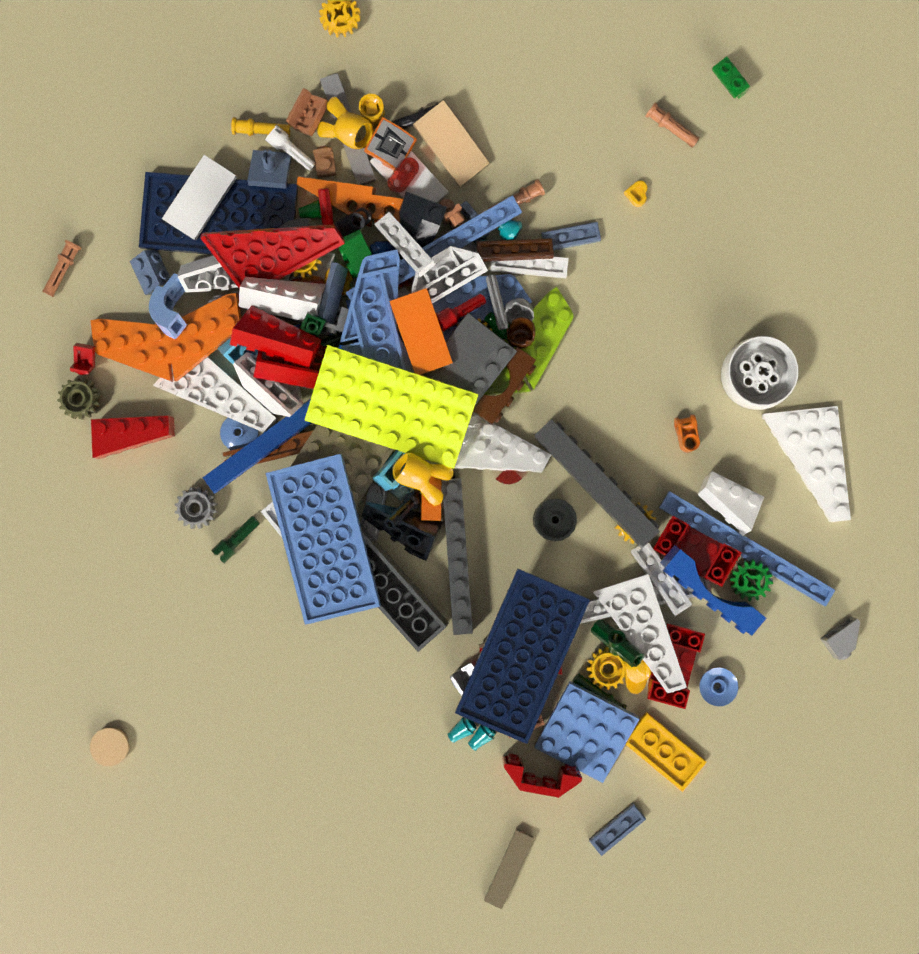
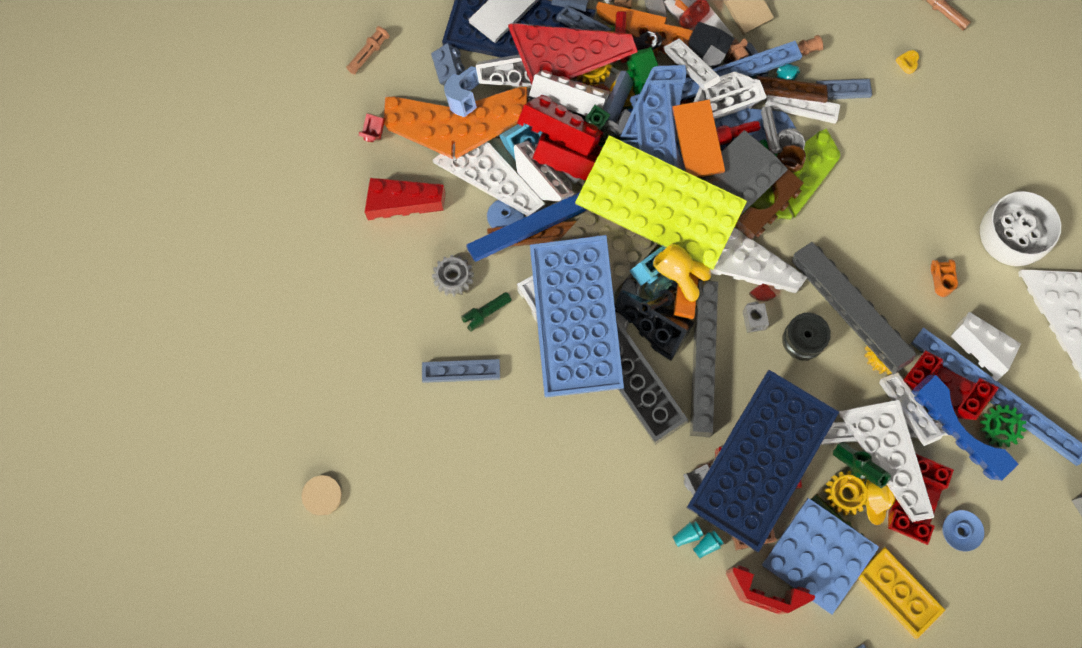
camera: 10 degrees right, 15 degrees down
(71, 391) = (357, 153): olive gear -> none
(221, 604) = (460, 371): none -> sand blue plate
(285, 206) = (579, 21): none -> sand blue tile
(510, 511) = (752, 324): none -> light grey brick

